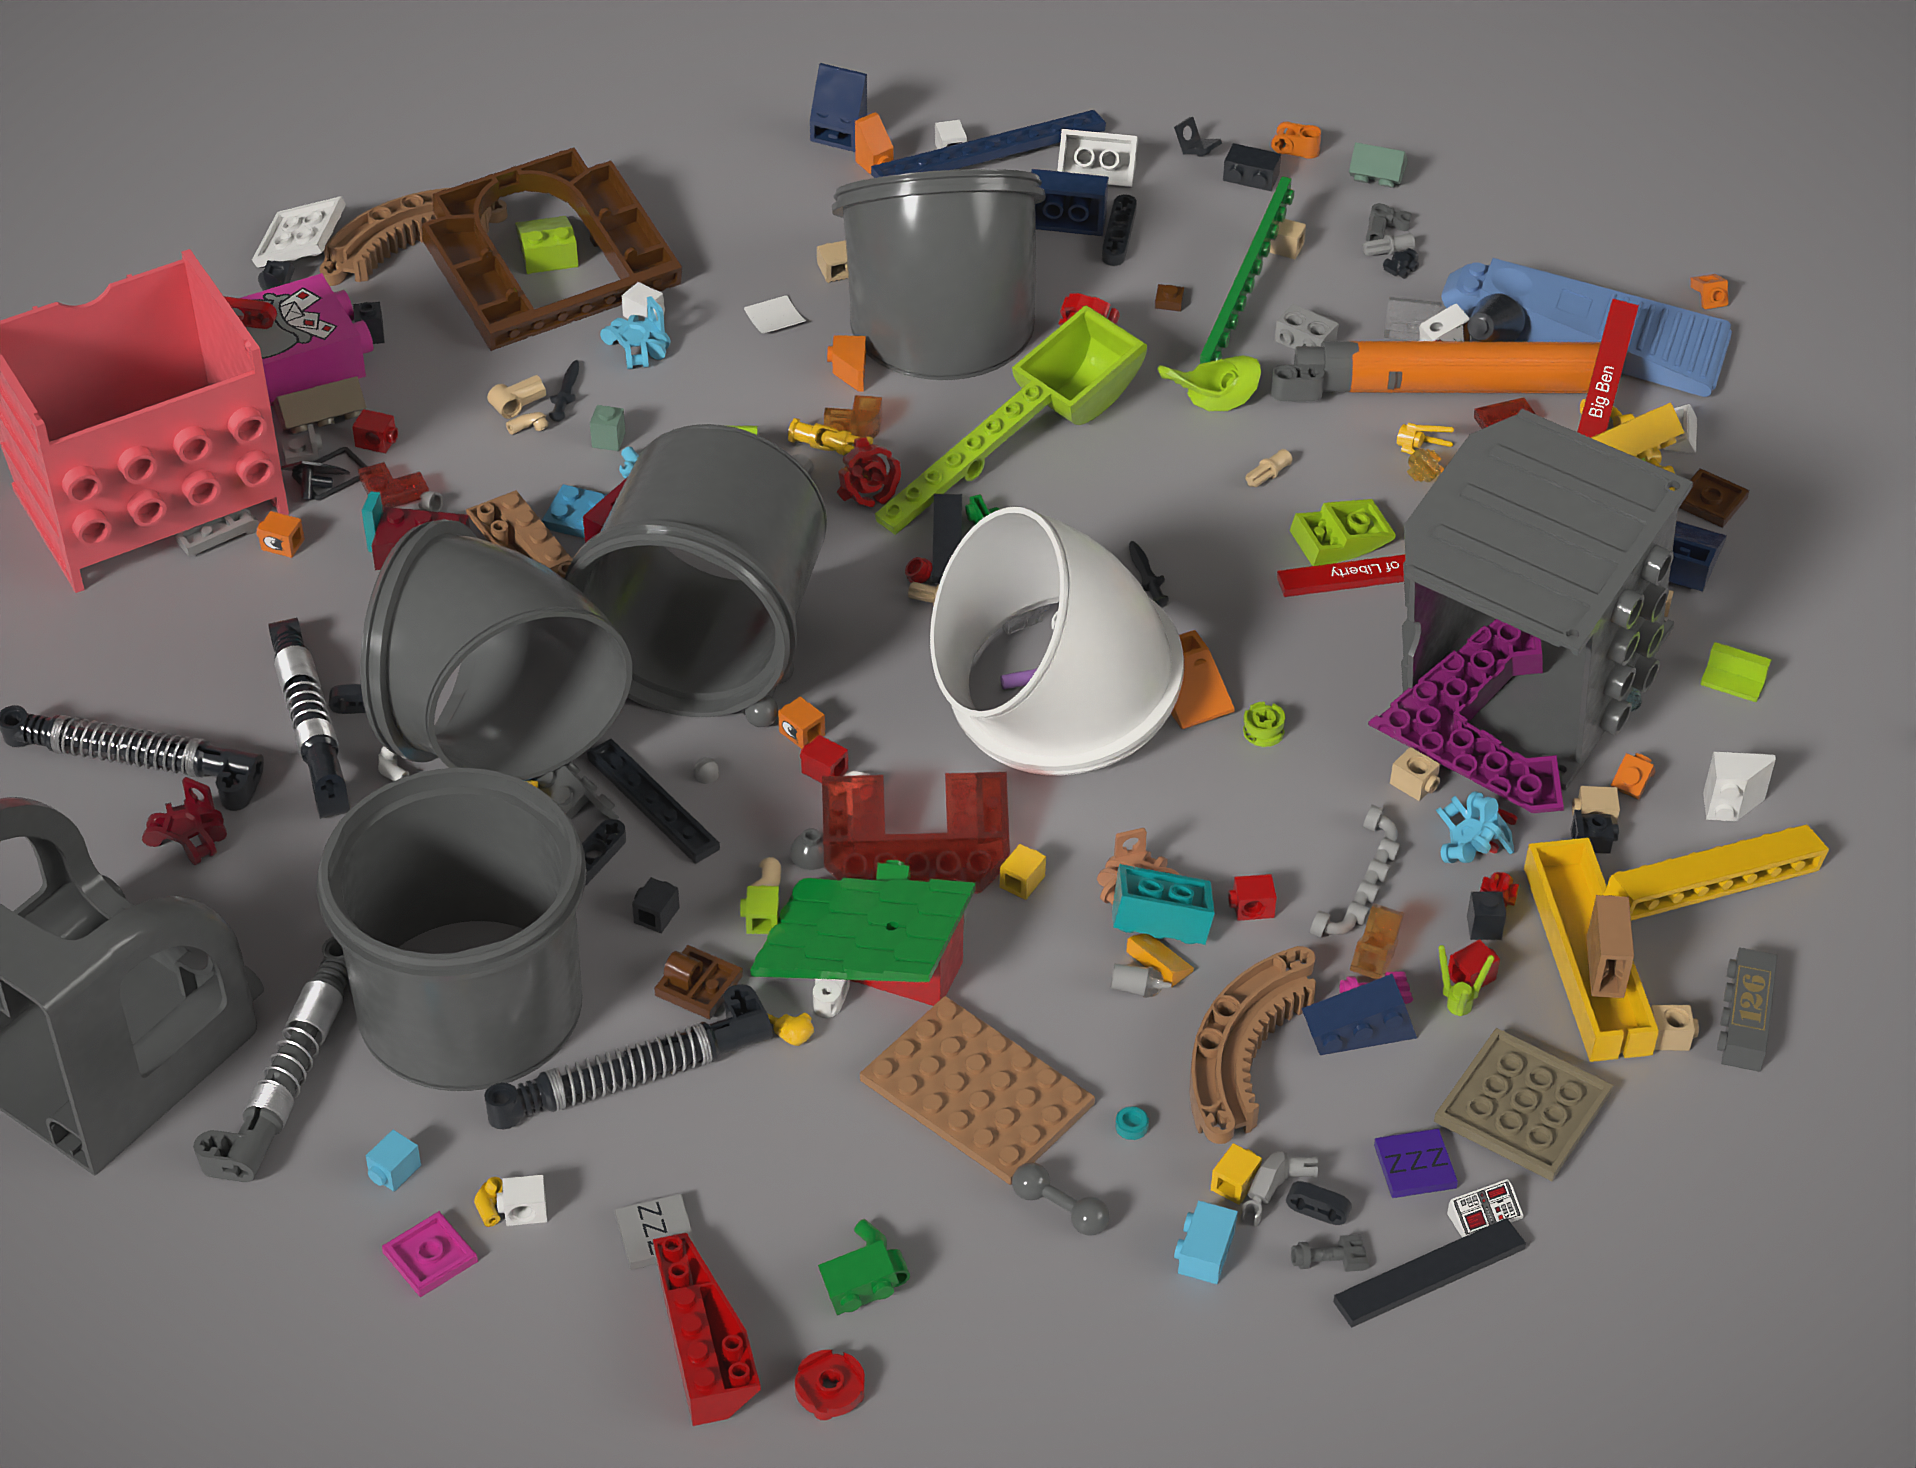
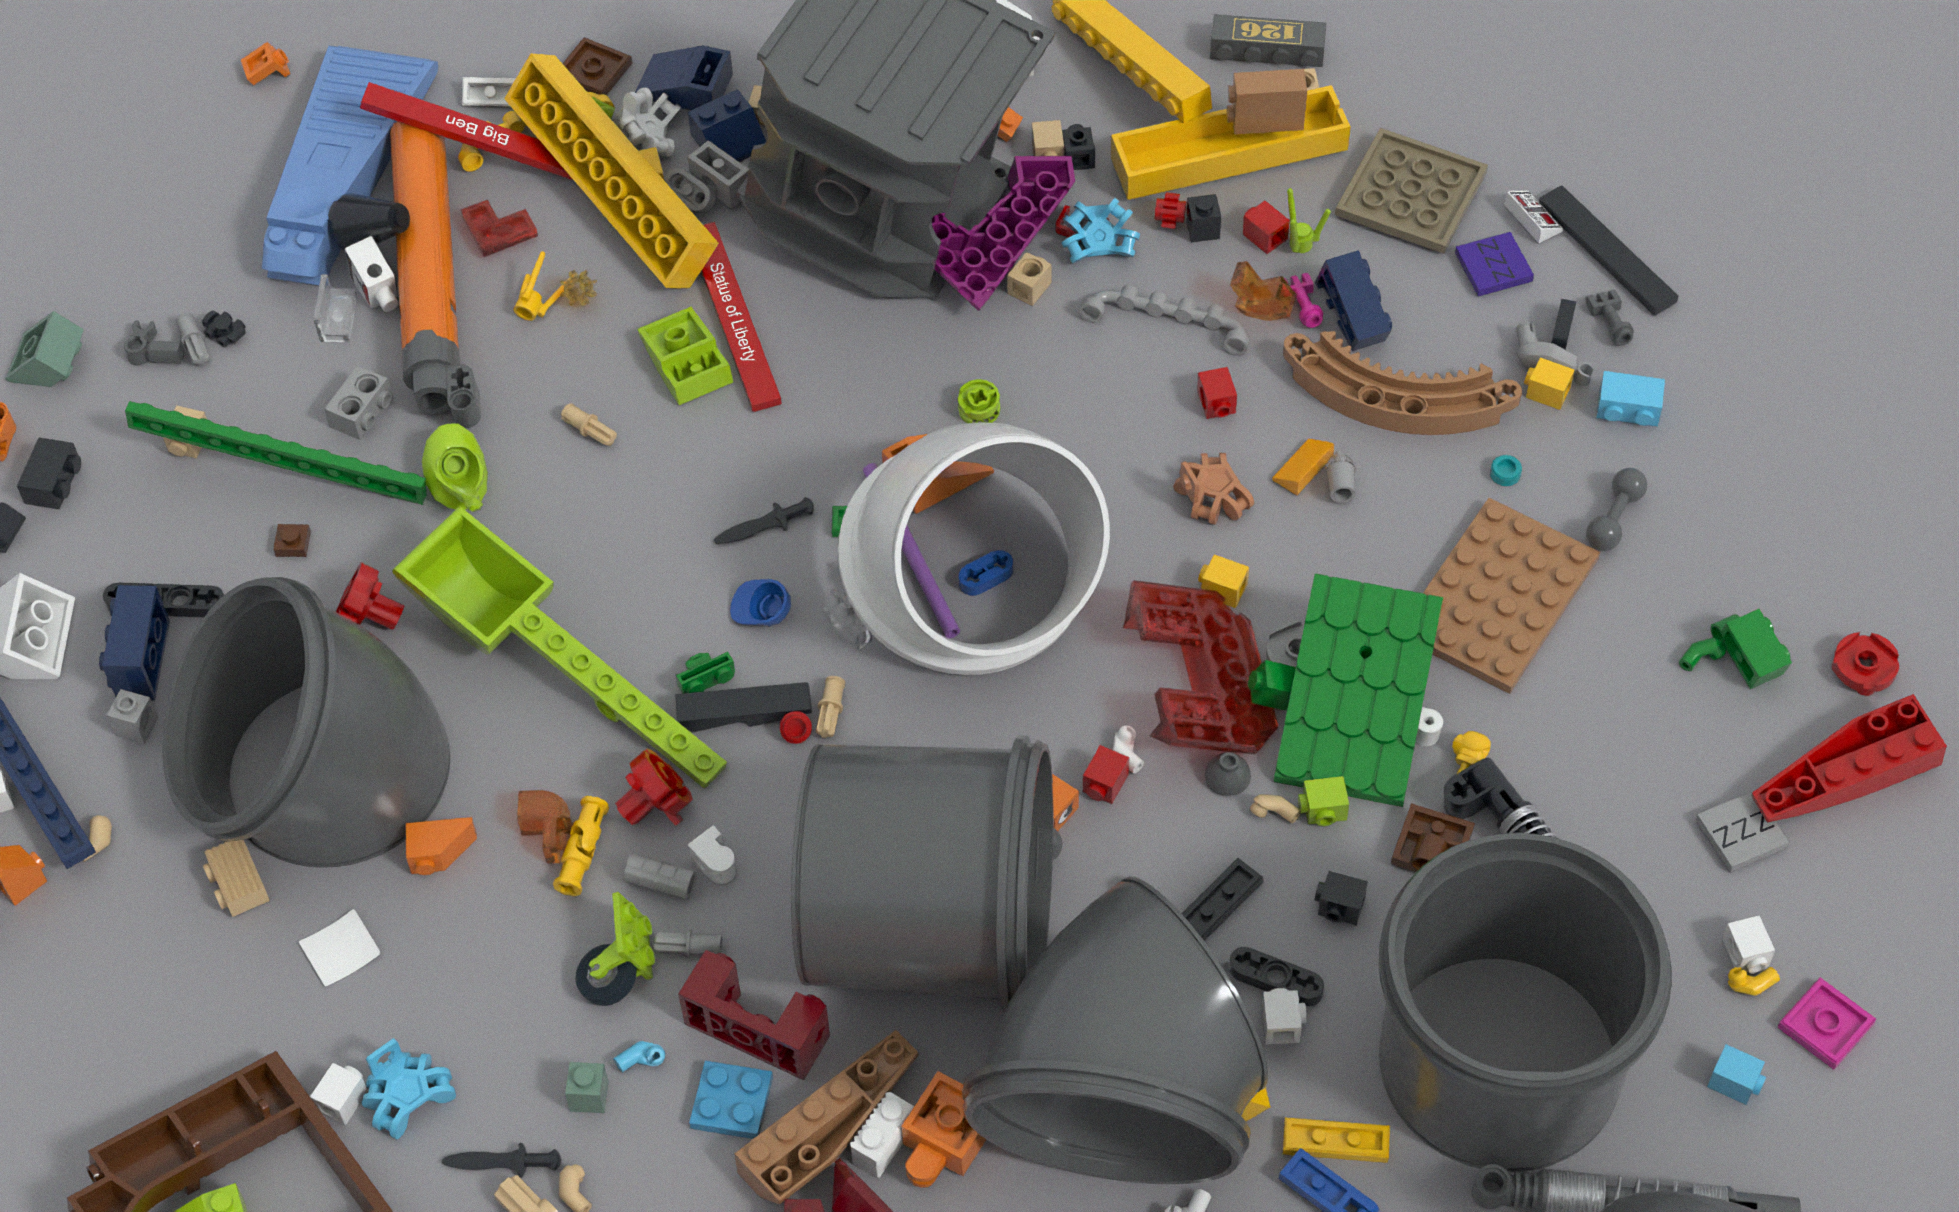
camera: 95 degrees left, 10 degrees up
(1162, 905) = (1253, 454): teal slope -> none

